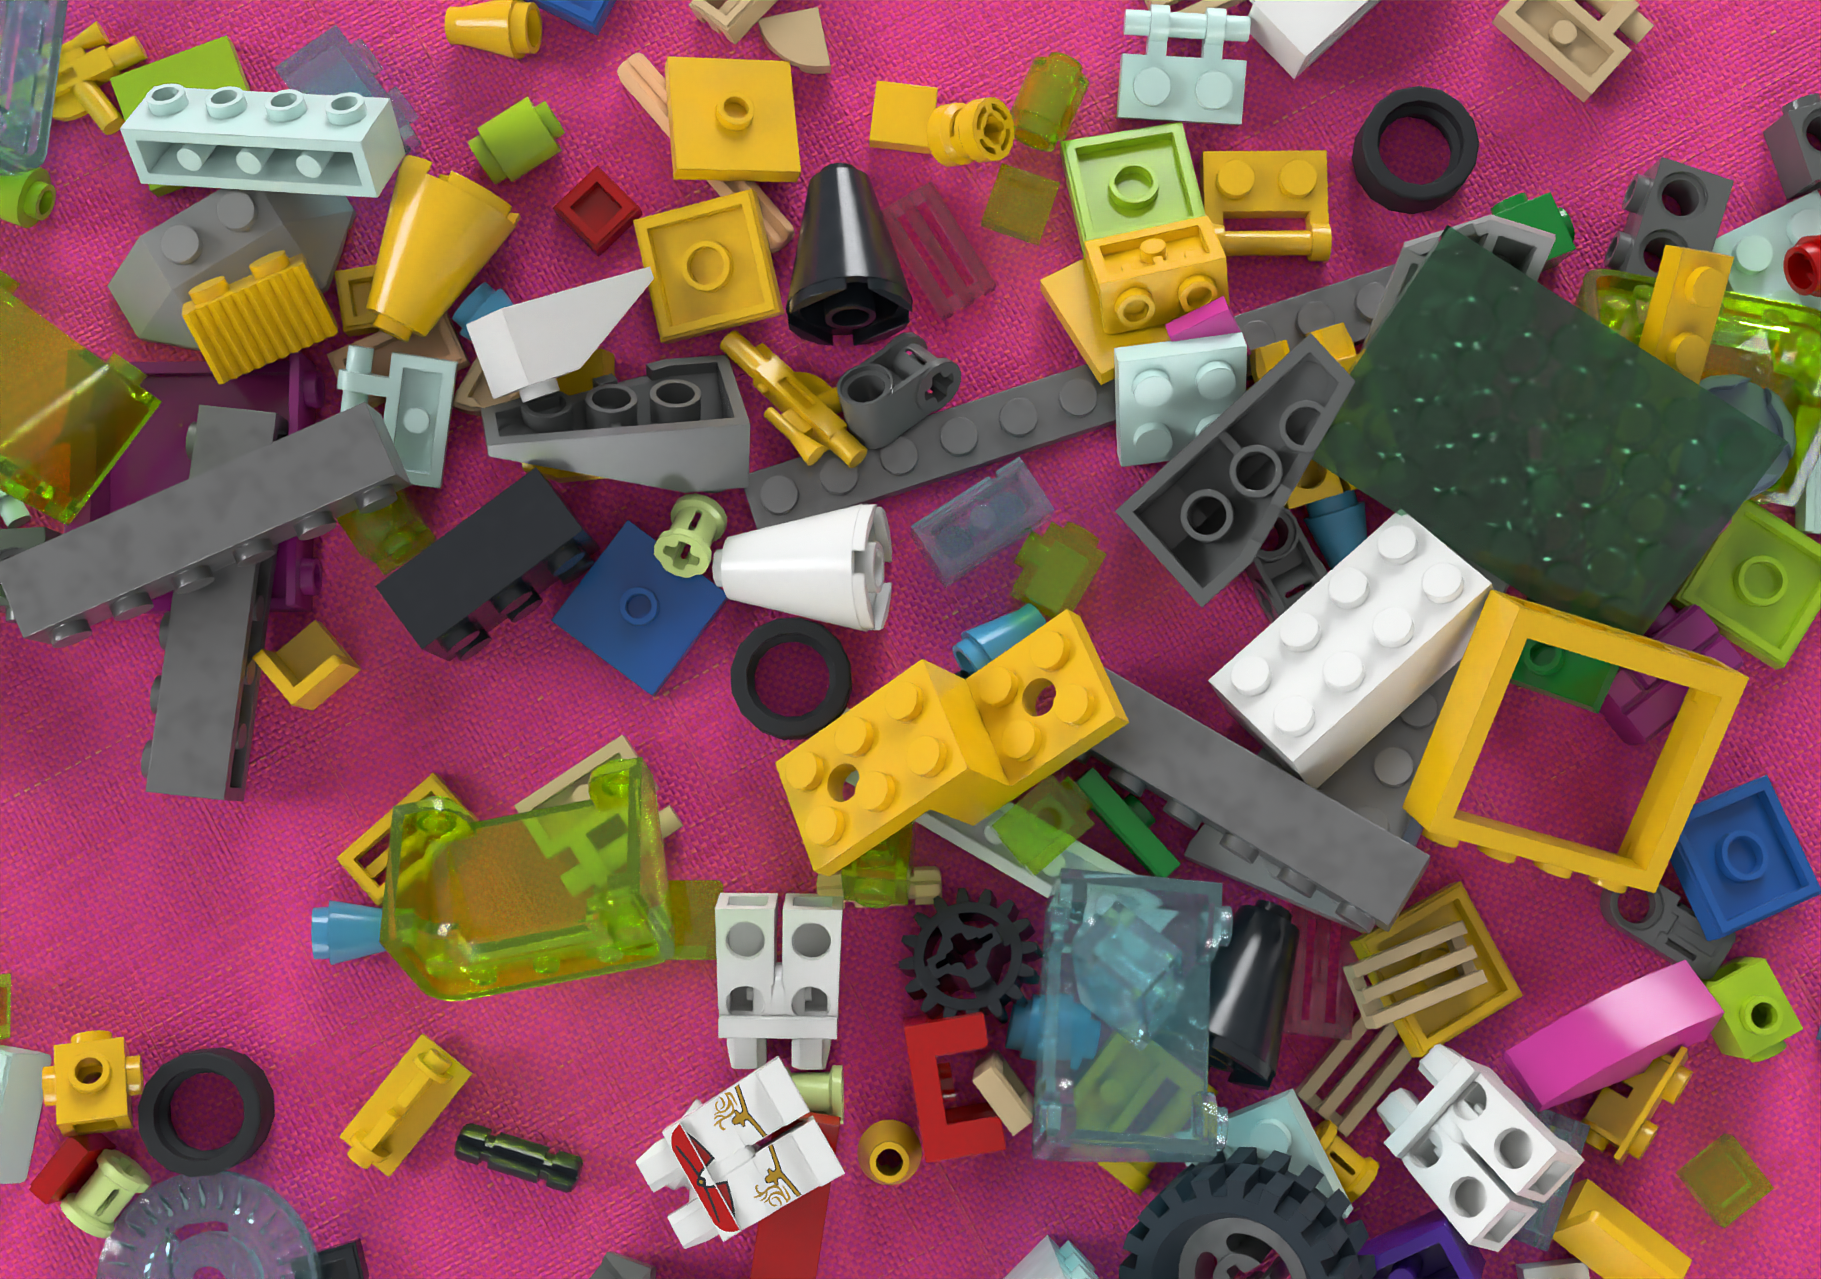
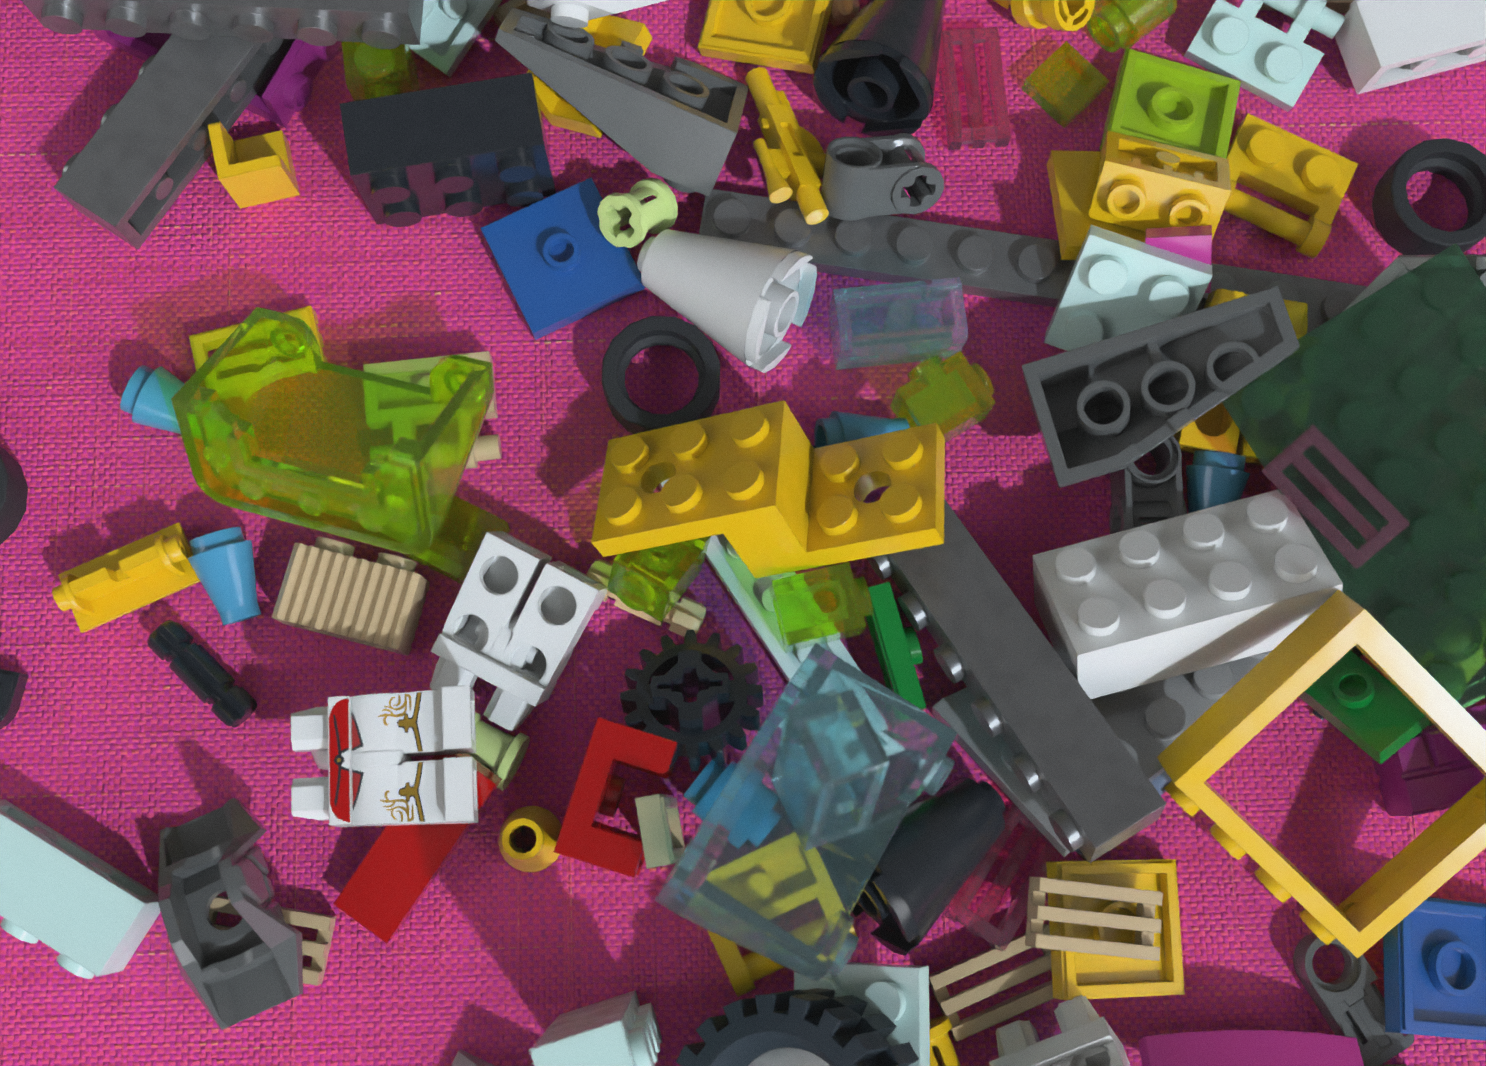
camera: 25 degrees right, 5 degrees down
(493, 1058) = (227, 573): none -> dark azure cone
(617, 1023) = (351, 596): none -> tan brick
(1397, 481) = (1375, 539): none -> clear pink tile

